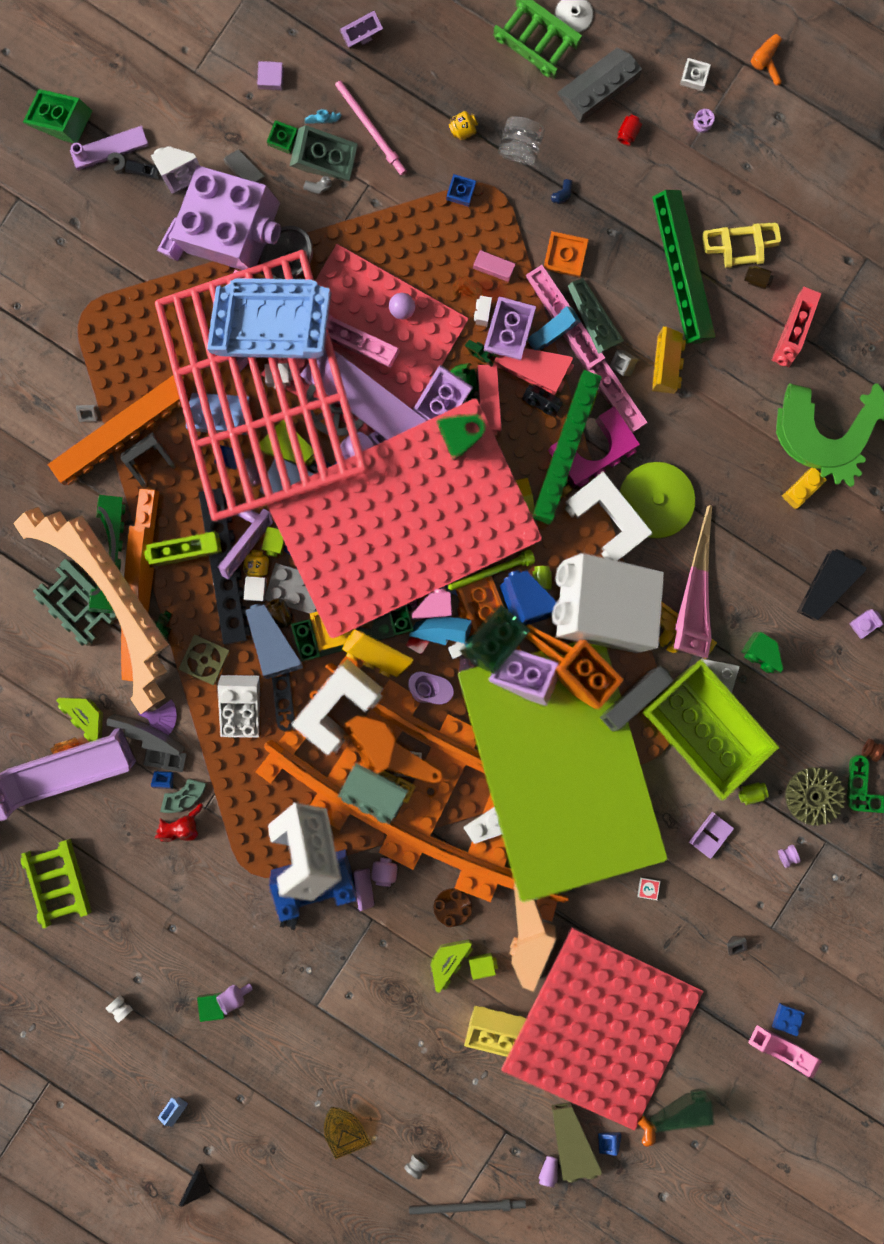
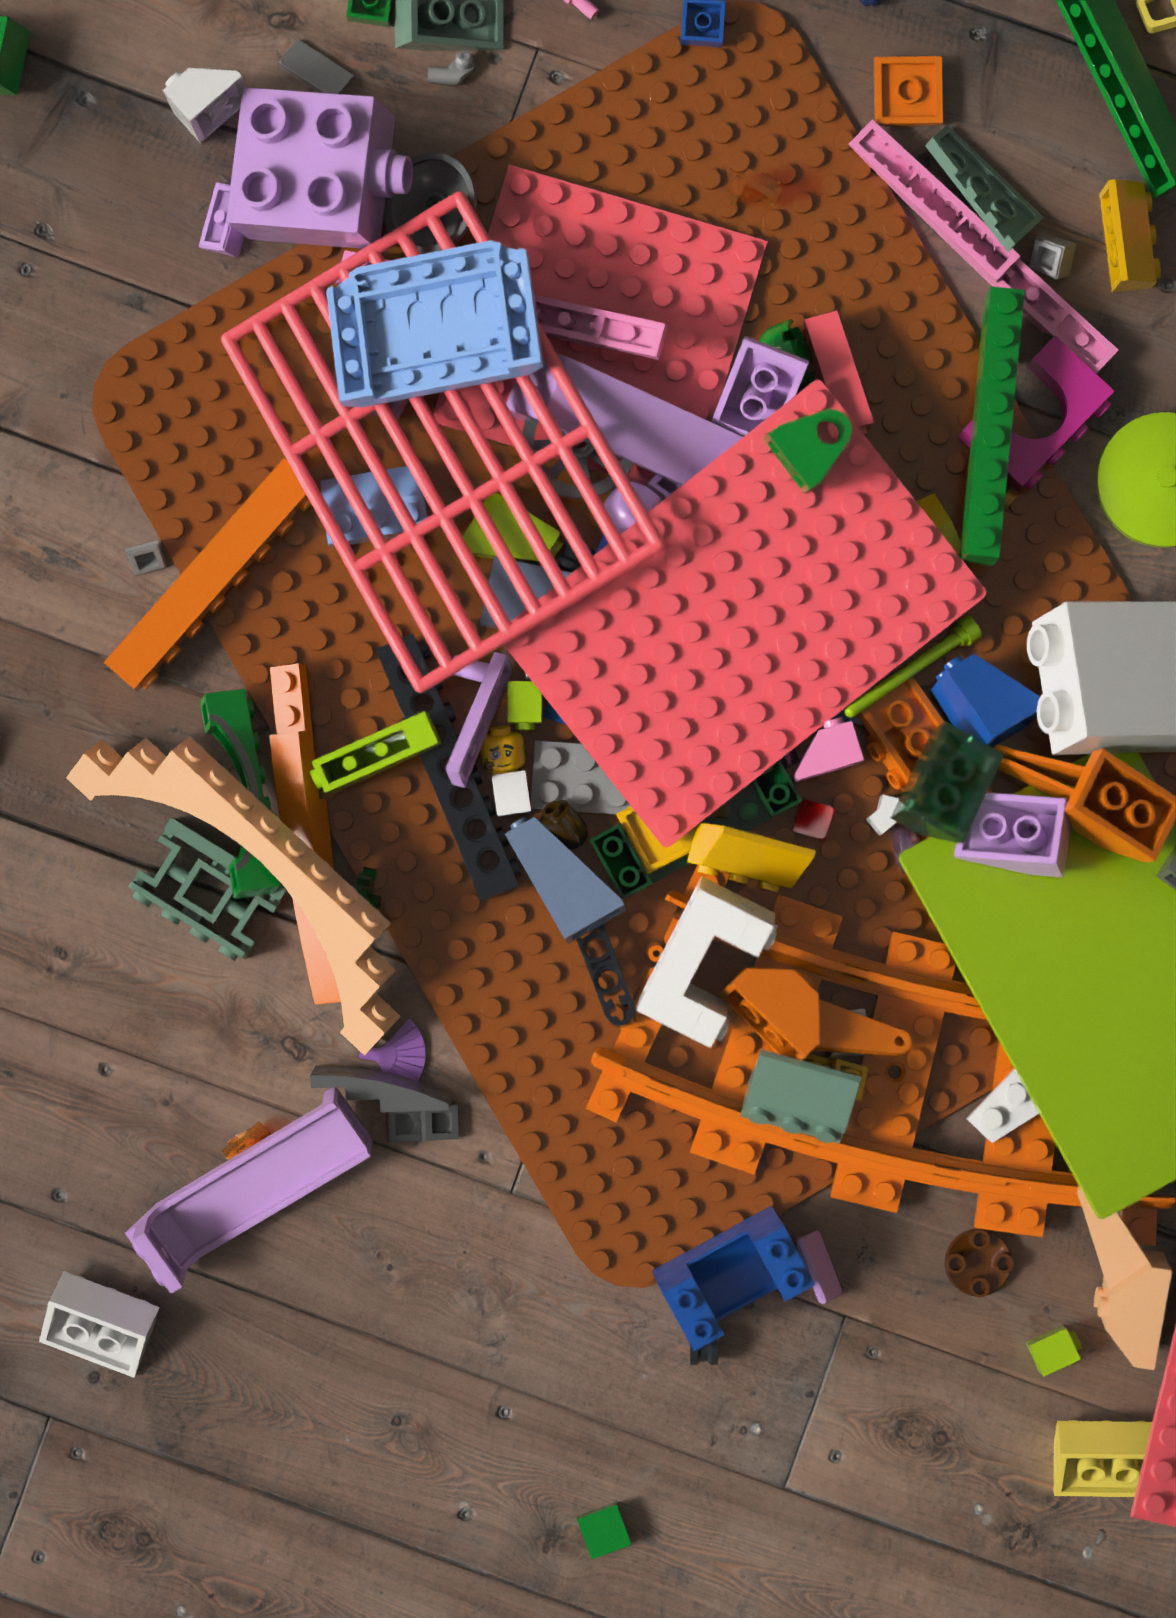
camera: 15 degrees left, 0 degrees up
(75, 886) = (321, 1380): lime fence -> none
(84, 716) = (267, 1080): lime slope -> none
(100, 150) = (73, 88): lavender piece -> none
(119, 1008) = (447, 1570): white wheel -> none
(132, 166) = (125, 111): black piece -> none
(138, 448) = (256, 597): dark grey hose -> none
(162, 780) = (427, 1161): blue slope -> none
(182, 828) = (482, 1235): red animal -> none
(184, 798) = (471, 1183): sand green tile -> none
(197, 656) = (448, 950): olive piece -> none
(229, 458) = (417, 577): clear blue panel -> none
(232, 998) = (638, 1505): lavender piece -> none
(239, 705) = (531, 1001): white slope -> none
(252, 471) = (464, 591): brick -> none
(285, 372) = (479, 409): white brick -> none
(312, 851) = (734, 1235): white piece -> none
(384, 872) = (848, 1228): lavender head -> none
(402, 306) = (650, 247): lavender piece -> none
(430, 688) = (853, 894): lavender piece -> none
(442, 630) = (851, 788): dark azure slope -> none
(448, 961) = (992, 1357): lime slope -> none
(478, 352) = (800, 295): dark green plate -> none
(482, 314) = (791, 220): white piece -> none
(494, 266) = (790, 140): bright pink slope -> none
(509, 328) = (845, 243): lavender slope -> none
(534, 397) = (913, 351): black hinge -> none
(538, 368) = (904, 299): coral slope -> none
(543, 576) = (1002, 656): lime brick -> none
(554, 329) = (921, 227): dark azure leg -> none
(620, 511) = (1135, 535): white piece -> none

